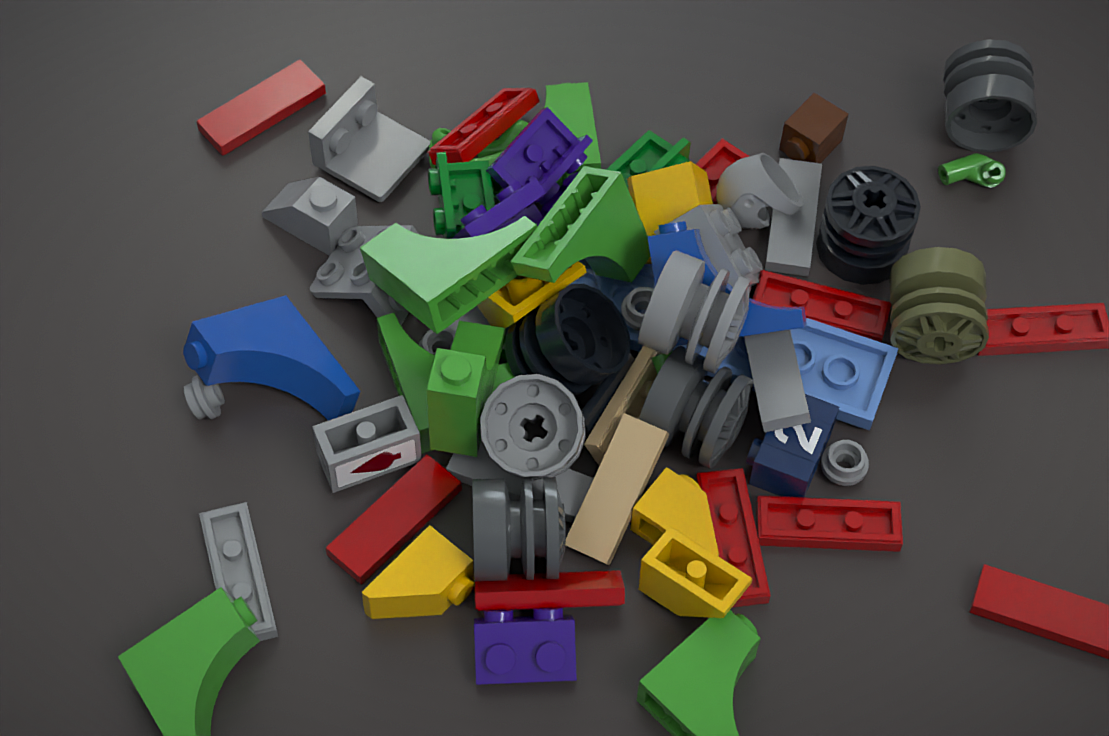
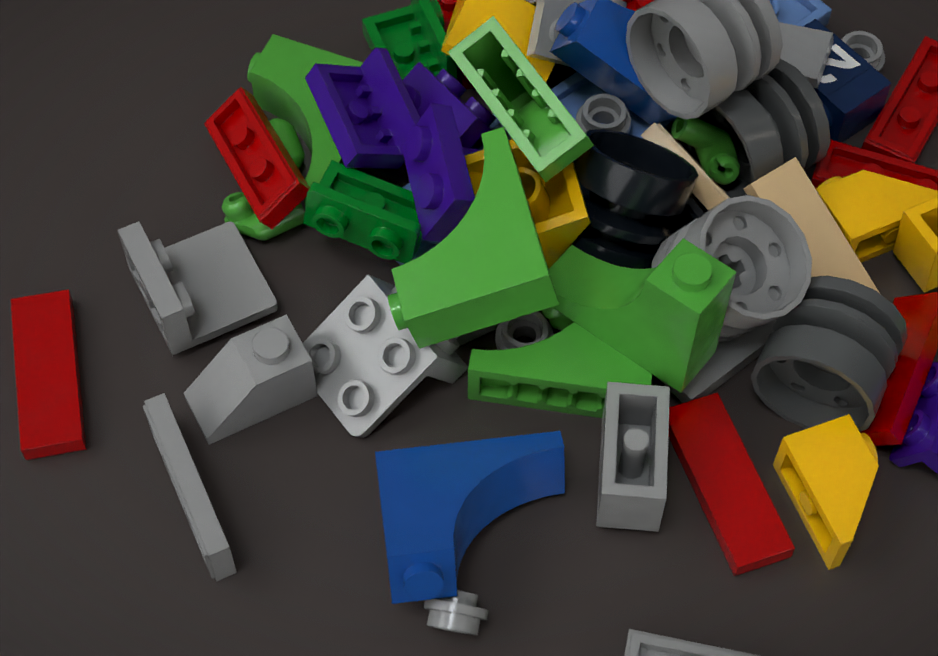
camera: 60 degrees left, 0 degrees up
(215, 216) = (189, 488): none -> light grey tile

